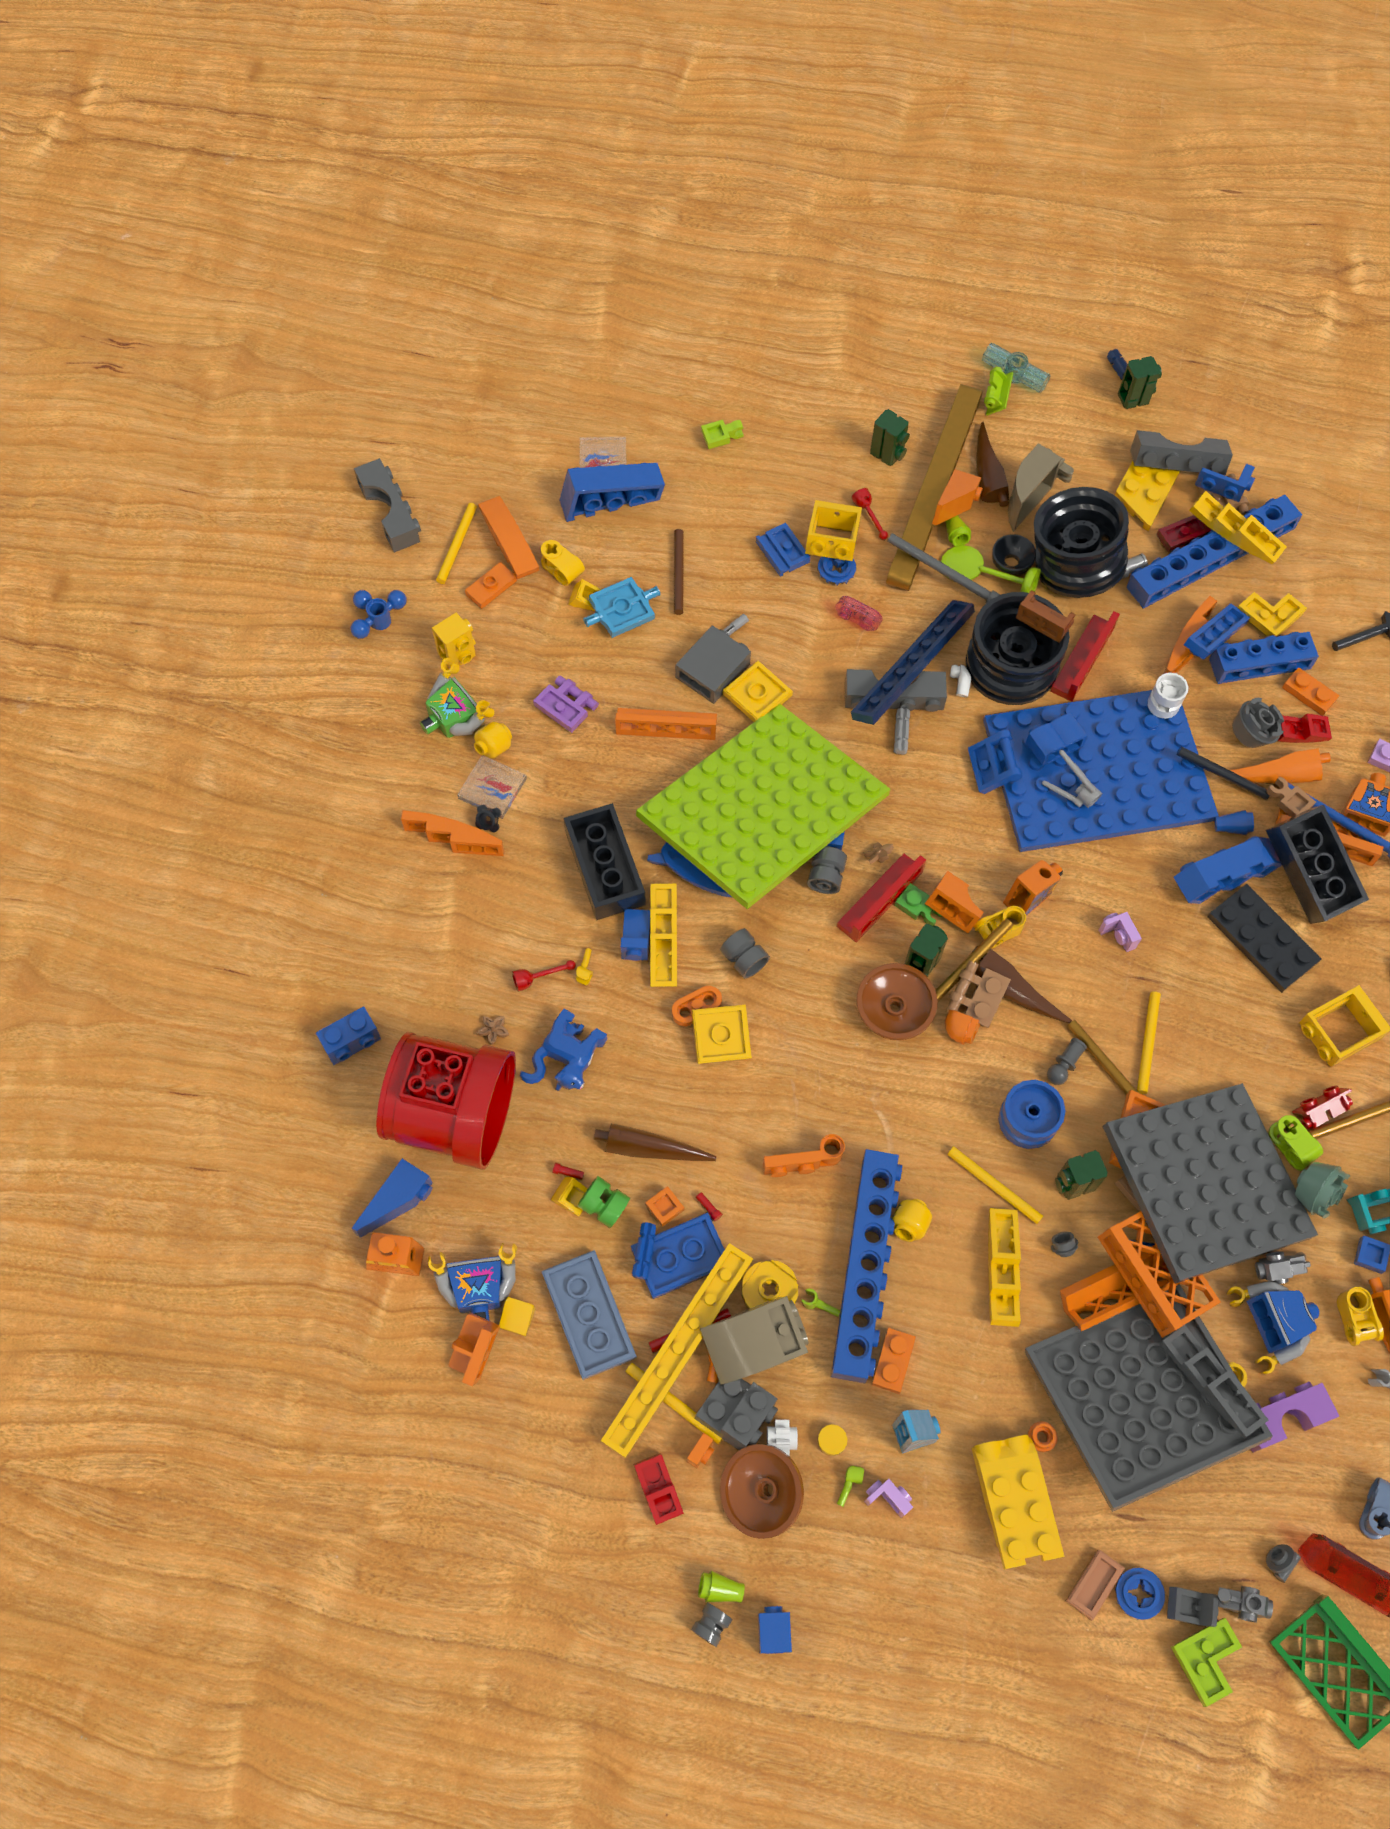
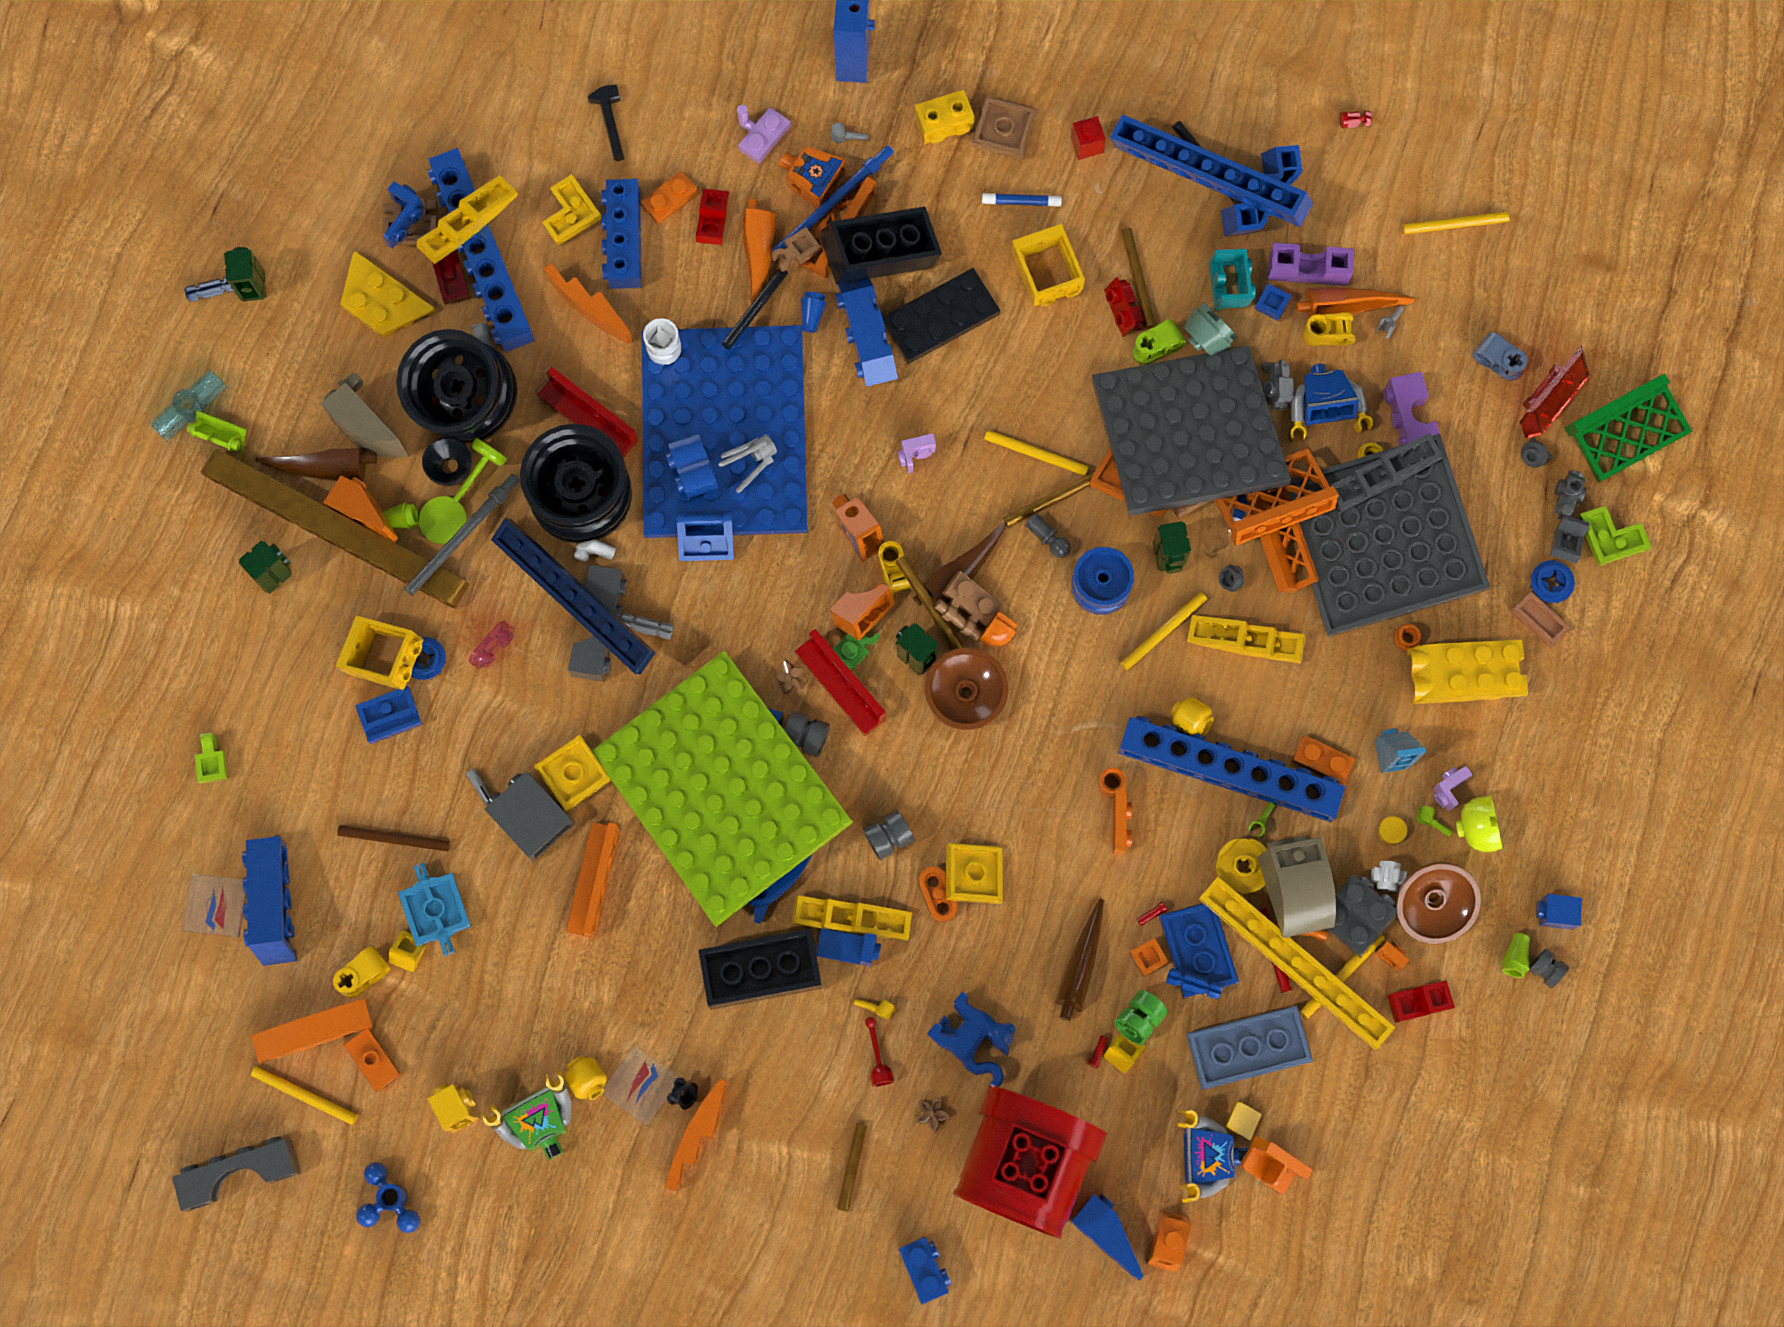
camera: 80 degrees left, 10 degrees up
(441, 967) = (852, 1167): none -> pearl gold bar
(561, 708) = (555, 995): medium lavender plate -> none
(852, 1532) = (1480, 825): none -> neon yellow cylinder
(863, 499) = (339, 612): red hinge -> none
(1044, 618) = (563, 445): dark orange hinge -> none
(1156, 451) = (343, 280): dark grey arch -> none
(1216, 631) = (590, 272): blue plate -> none
(1257, 724) = (706, 259): dark grey cone -> none

